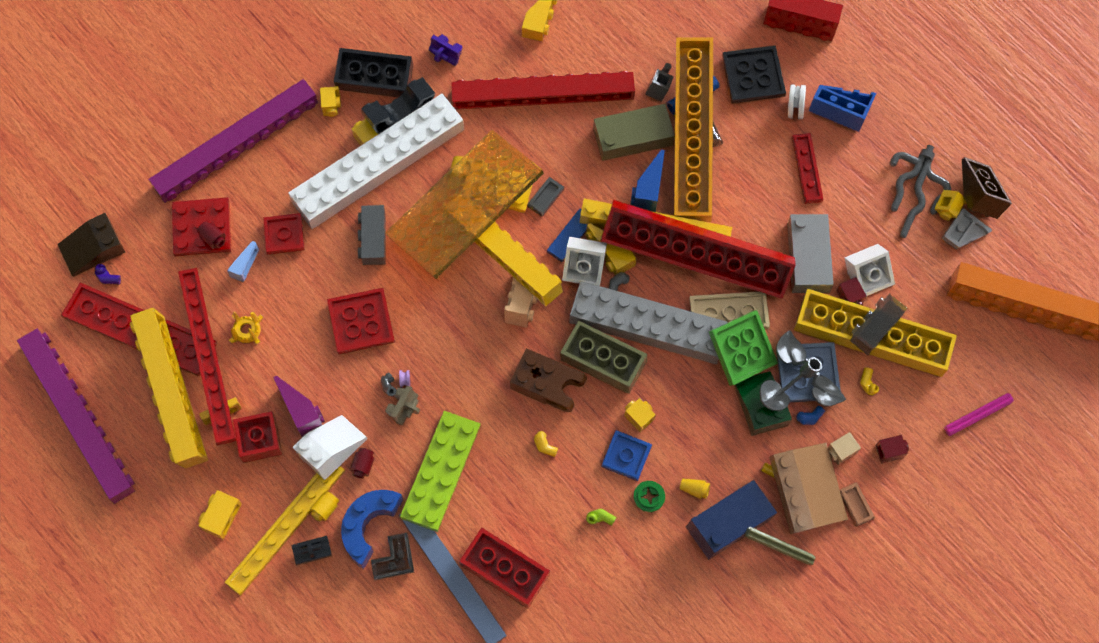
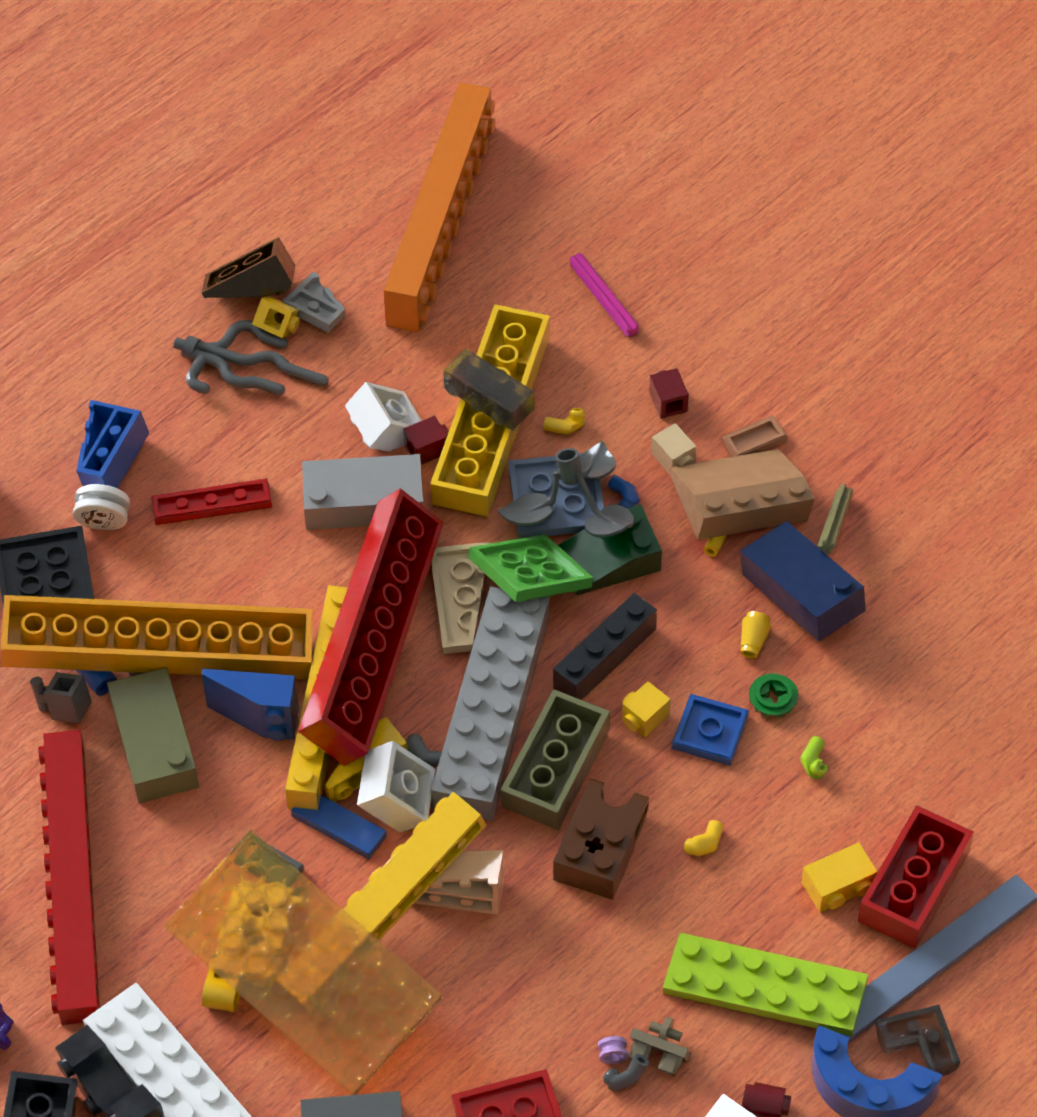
camera: 90 degrees left, 15 degrees down
(510, 522) = (838, 877): none -> yellow brick
(685, 392) = (605, 647): none -> black brick

